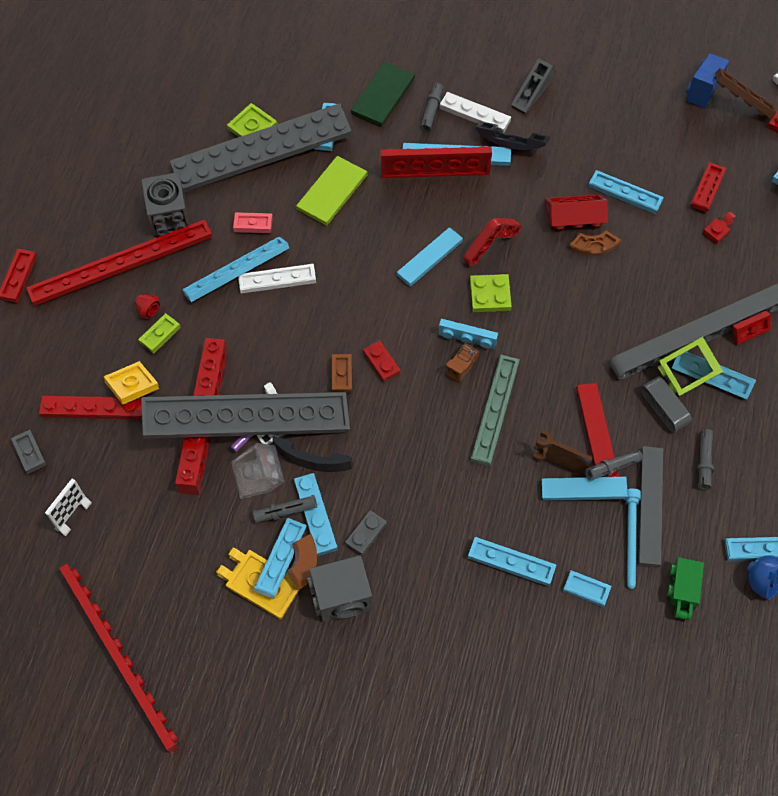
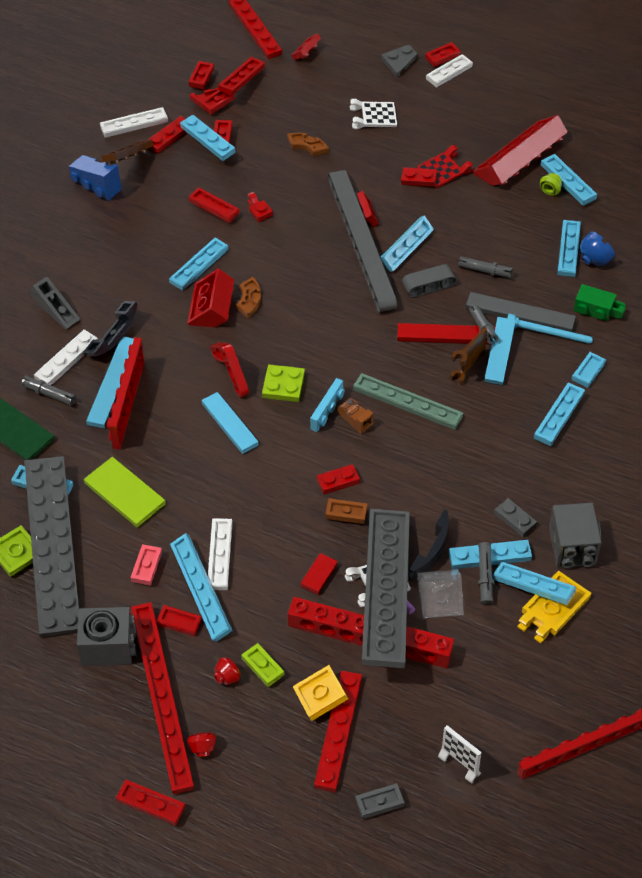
camera: 80 degrees left, 10 degrees down
(74, 300) = (202, 743): none -> red cone
(200, 261) = (179, 620): none -> red tile
(267, 363) = (319, 574): none -> red tile
(304, 560) = (541, 564): dark orange tile -> none
(707, 354) = (402, 235): lime window -> none

